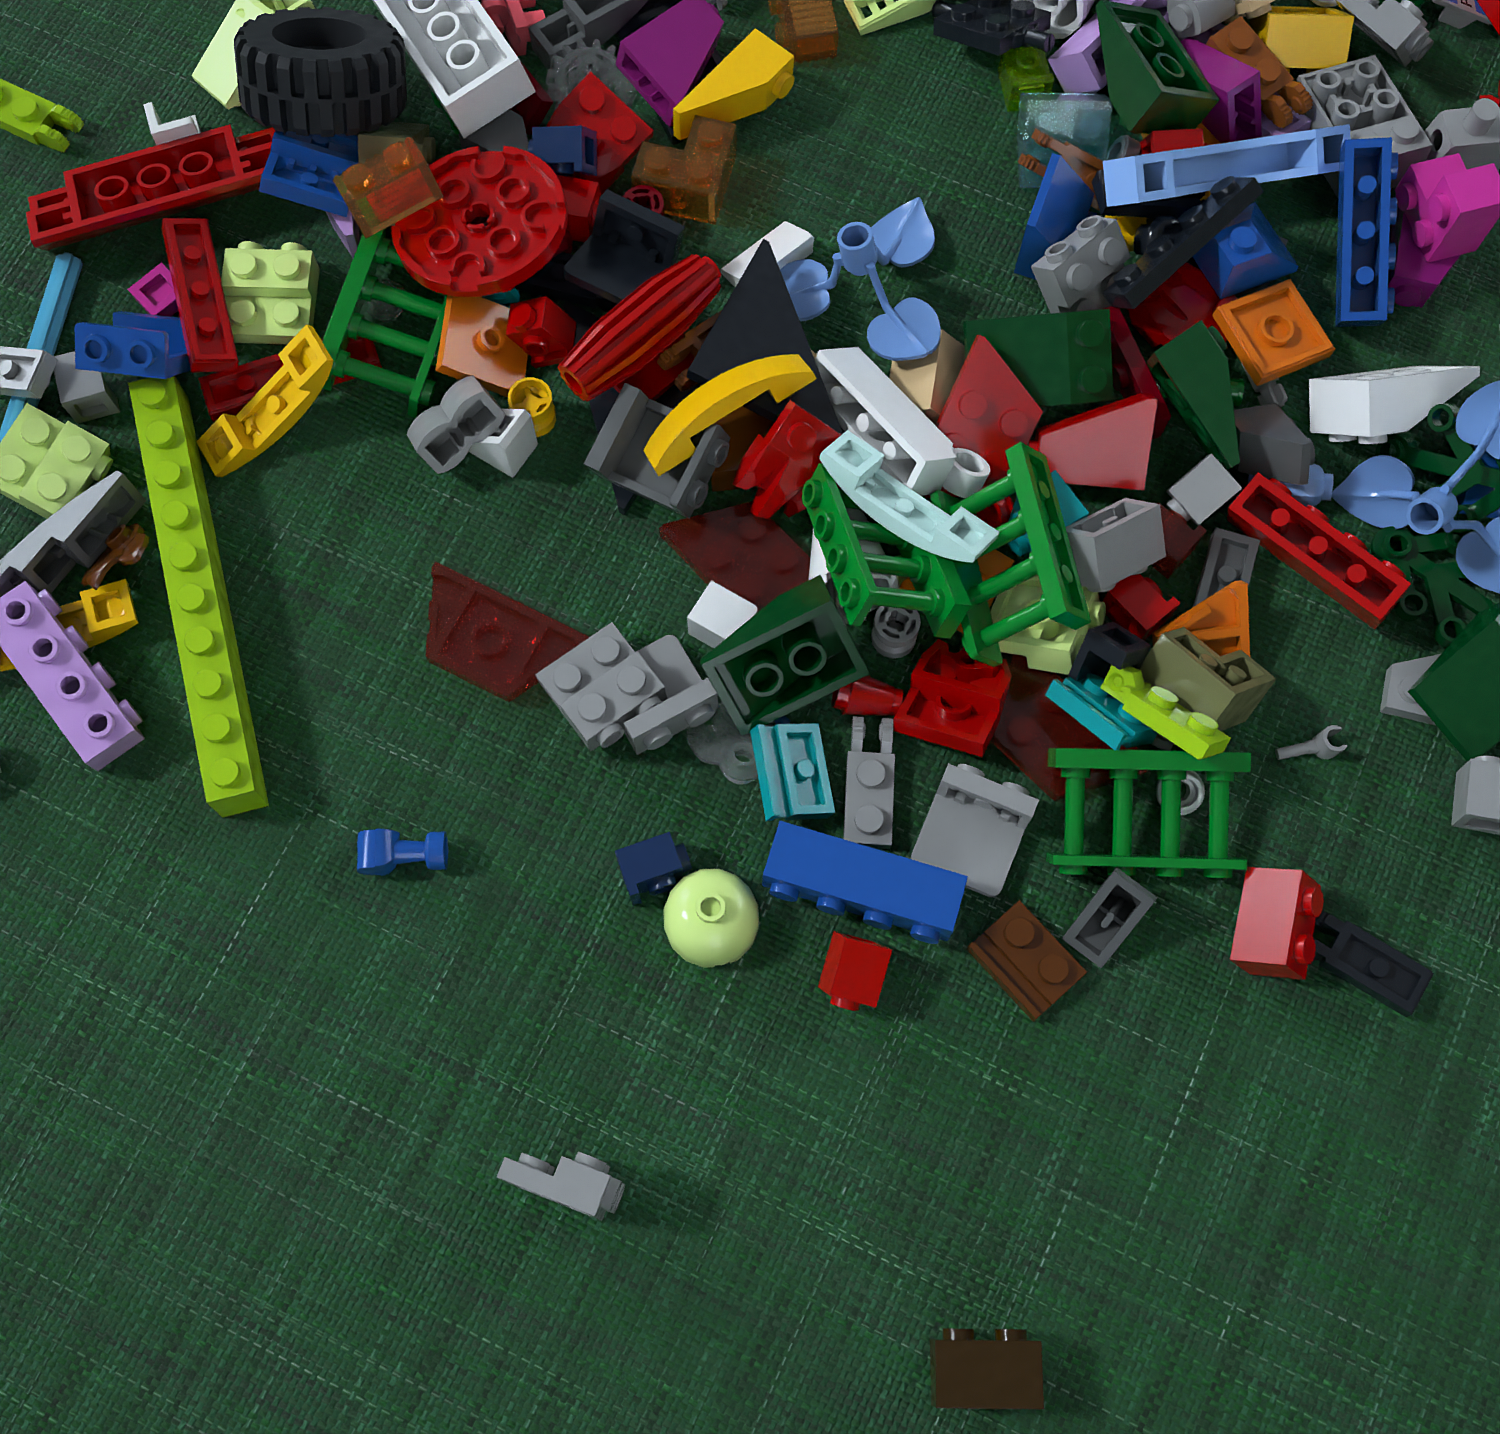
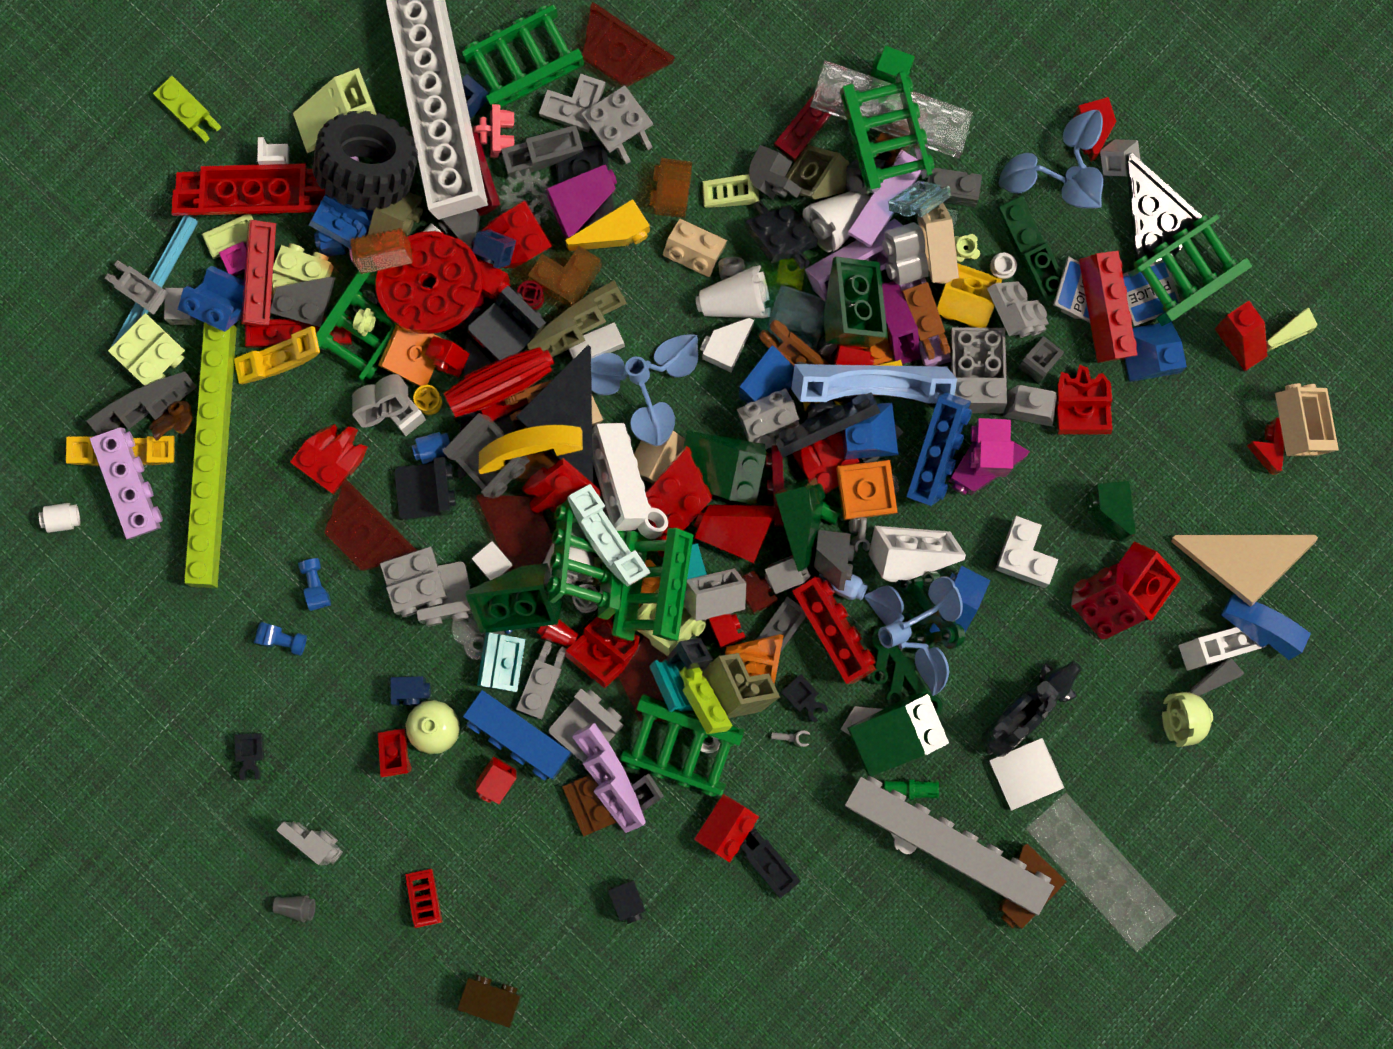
camera: 20 degrees right, 10 degrees up
(132, 266) = (227, 235): none -> yellowish green tile
(280, 311) = (304, 300): none -> dark grey wing
(302, 225) = (328, 245): none -> blue brick
(392, 309) = (364, 321): none -> yellowish green plate
(398, 540) = (330, 456): none -> red plate
(403, 1059) = (249, 750): none -> black plate
(440, 757) = (315, 594): none -> blue leg
(561, 475) = (430, 447): none -> blue brick
(570, 1316) = (295, 907): none -> dark grey cone
(574, 541) = (425, 490): none -> black bracket
(660, 979) = (393, 753): none -> red slope
(739, 215) = (583, 316): none -> olive slope
(818, 1260) = (417, 921): none -> red slope
(867, 87) = (694, 247): none -> tan bracket
(933, 92) = (730, 266): none -> flat silver tile
(961, 124) = (736, 296): none -> white cone
(969, 198) = (726, 344): none -> white slope
(1057, 909) = (613, 784): none -> lavender slope
(1157, 1107) = (627, 902): none -> black brick
(1293, 410) = (861, 536): none -> light grey hand
(1302, 673) = (801, 695): none -> black plate
(1438, 92) = (1040, 360): none -> dark grey slope

